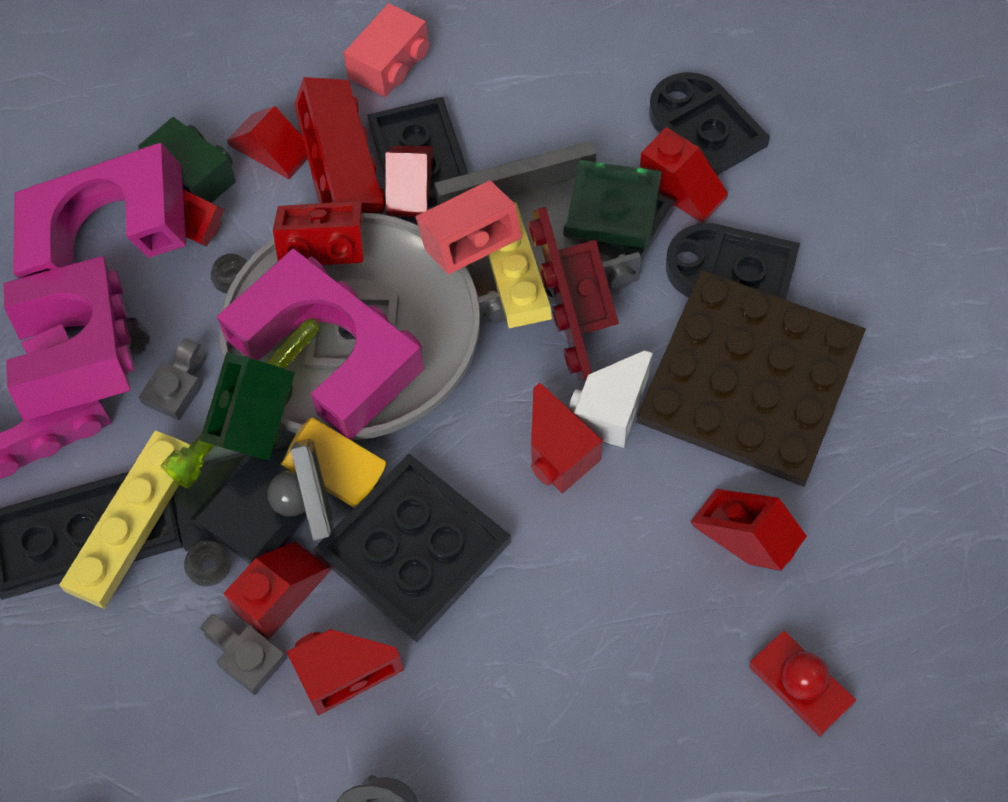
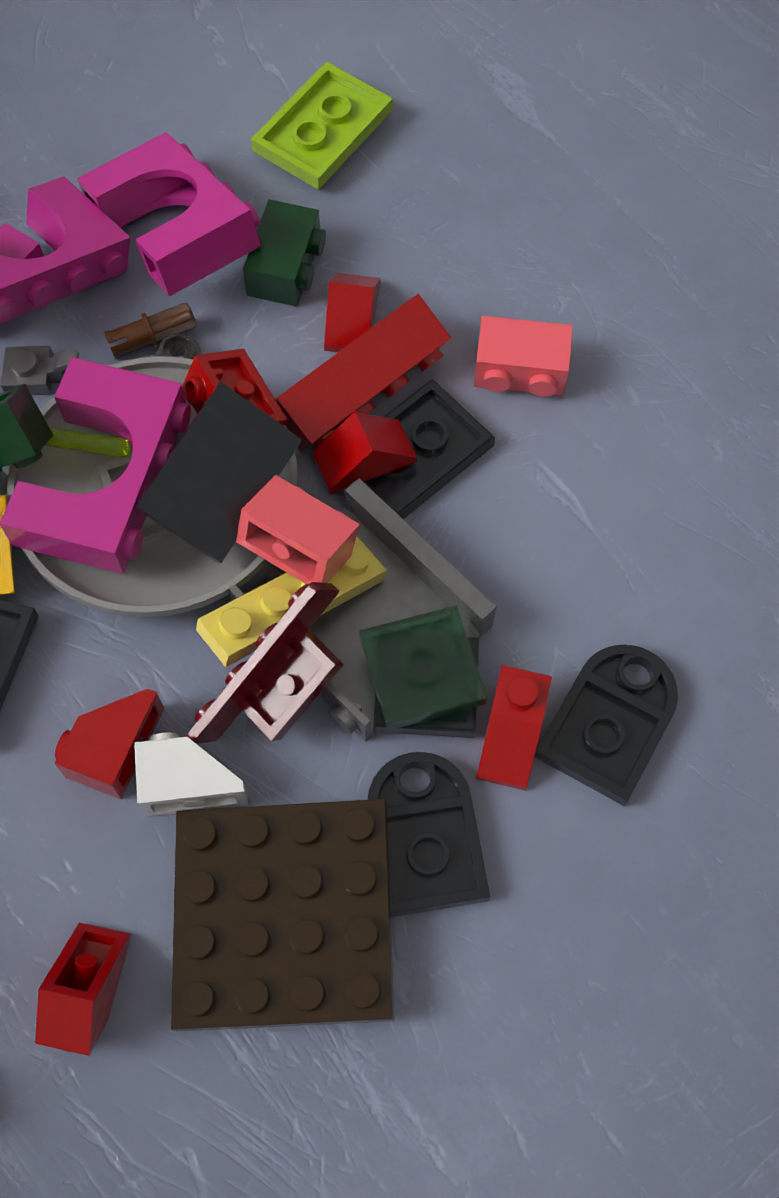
camera: 60 degrees right, 5 degrees up
(80, 93) = (322, 125): none -> lime plate
(139, 336) = (67, 310): clear smoke hinge -> none
(195, 284) = (151, 329): none -> reddish brown axle
(201, 218) = (218, 294): red tile -> none
(389, 254) = (216, 471): none -> black tile

